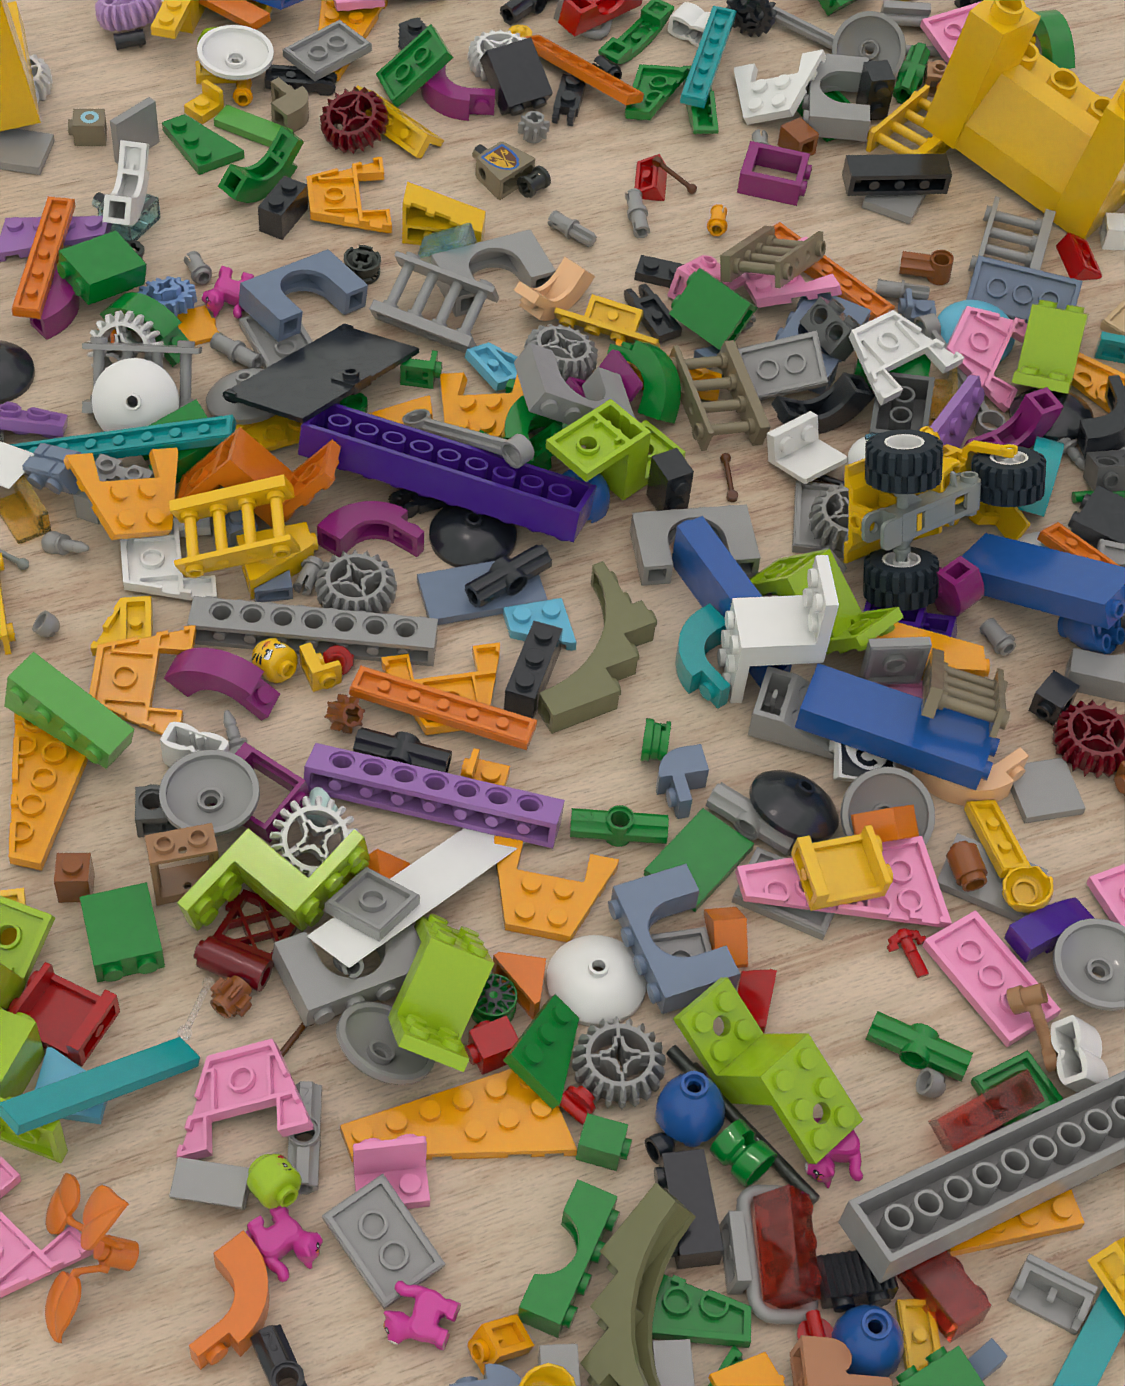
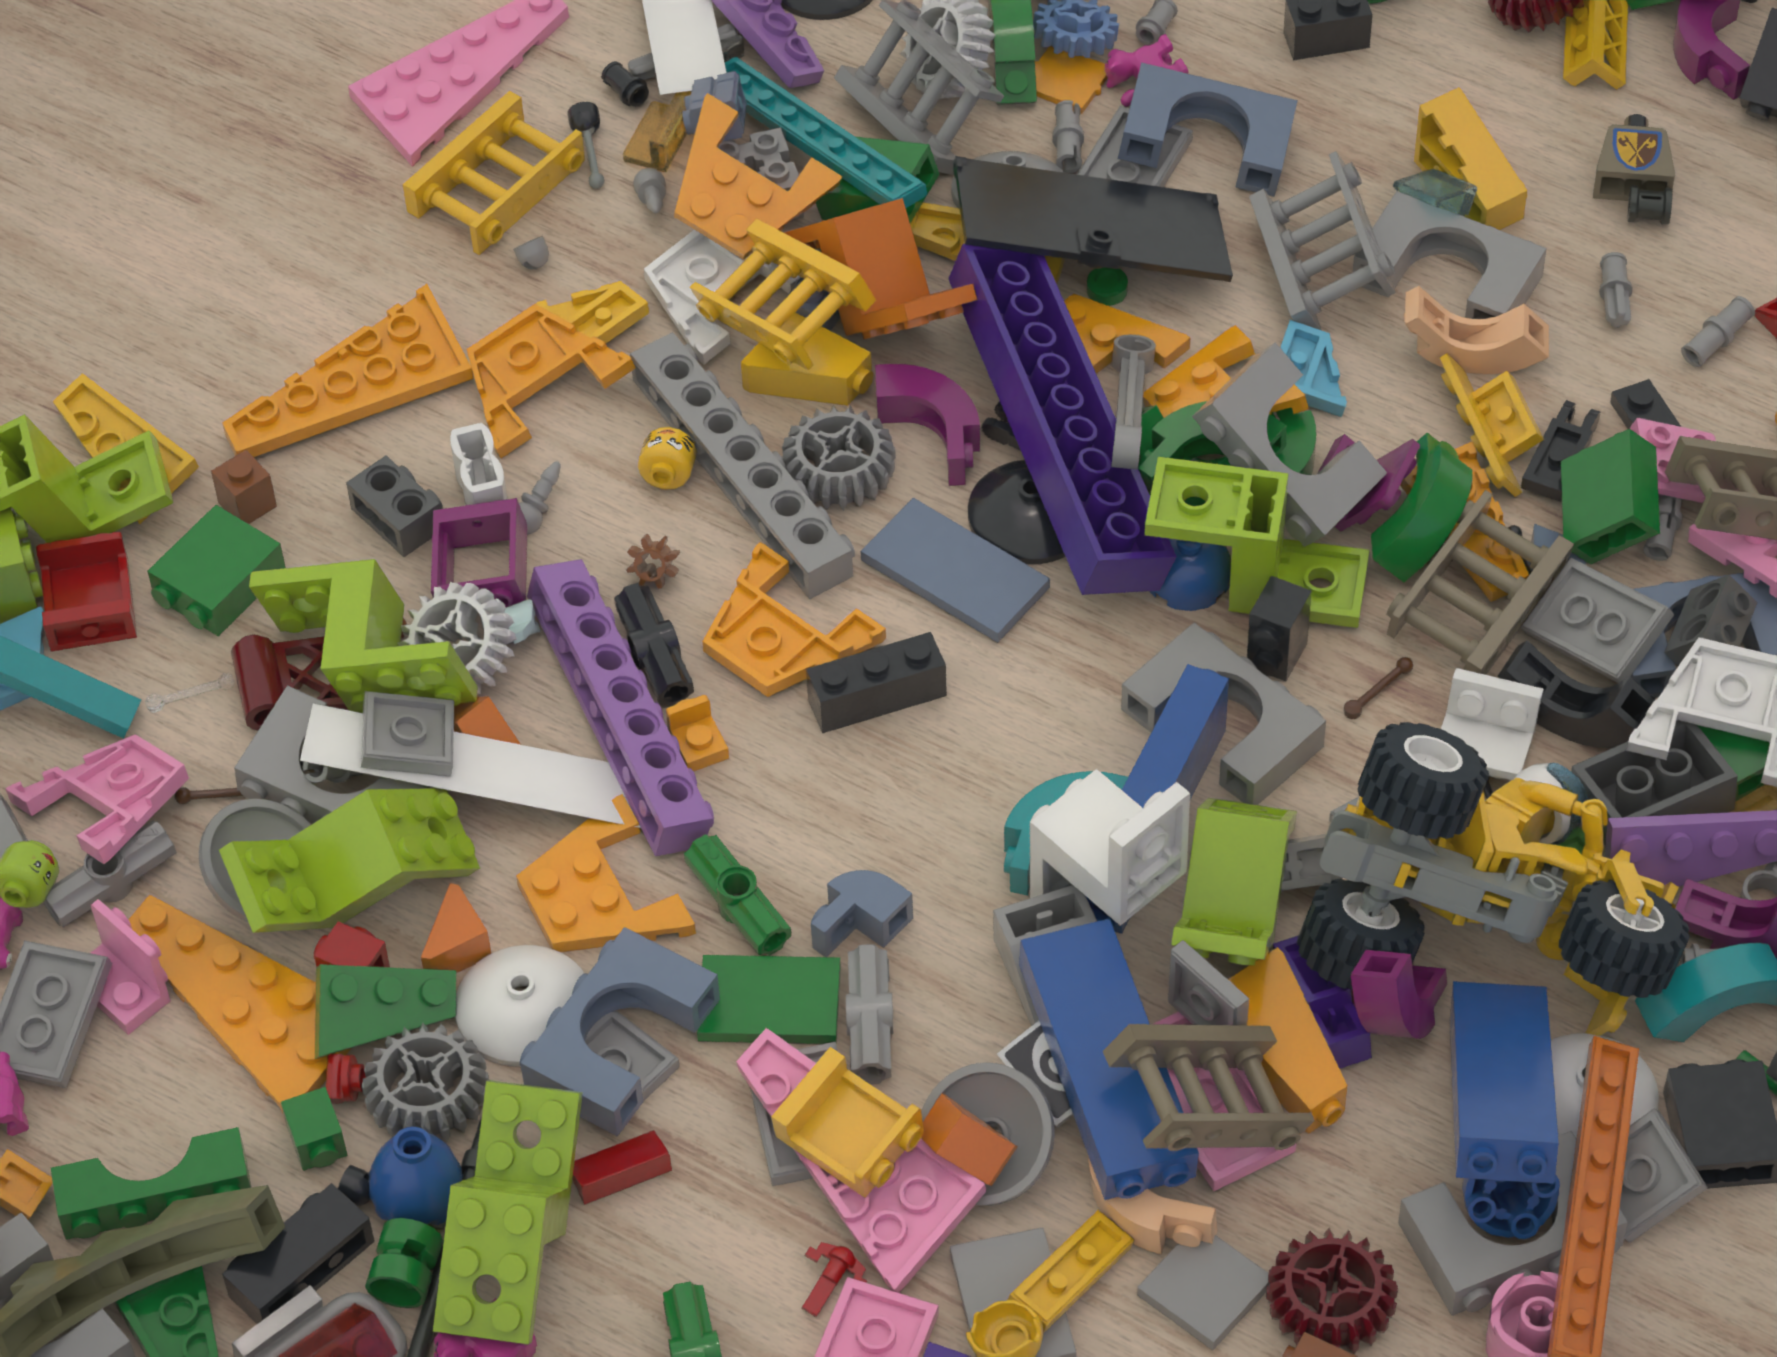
camera: 60 degrees right, 0 degrees up
(66, 711) = (415, 335): bright green wedge -> none
(137, 378) = (900, 94): white dish -> none
(166, 848) = (314, 534): medium nougat window -> none
(206, 779) = (411, 496): light grey dish -> none
(225, 673) = (596, 437): magenta arch -> none
(231, 997) = (216, 705): dark orange gear -> none
(275, 589) = (771, 397): sand blue piece -> none
(308, 574) = (808, 407): light grey pin -> none
(316, 671) = (691, 500): yellow bracket -> none
(336, 197) = (1410, 53): light orange wing -> none
(339, 653) = (725, 512): red plate -> none
(363, 262) = (1313, 138): pearl dark grey wheel -> none
(421, 372) = (1217, 309): green bracket -> none
(443, 707) = (740, 637): orange tile -> none
(495, 1000) = (405, 925): green wheel -> none
(508, 575) = (982, 572): black piece -> none
(533, 127) = (1744, 144): light grey gear -> none
(551, 612) = (969, 651): medium azure wing -> none
(572, 350) = (1380, 403): light grey gear -> none
(595, 684) = (970, 743): olive arch -> none
(655, 740) = (884, 849): green wheel -> none
(728, 928) = (684, 1085): orange slope -> none
(794, 805) = (899, 1046): black dish -> none
(967, 865) = (987, 1256): dark orange brick -> none
(1002, 642) = (1396, 1111): light grey pin -> none
(1053, 697) = (1356, 1208): black brick -> none

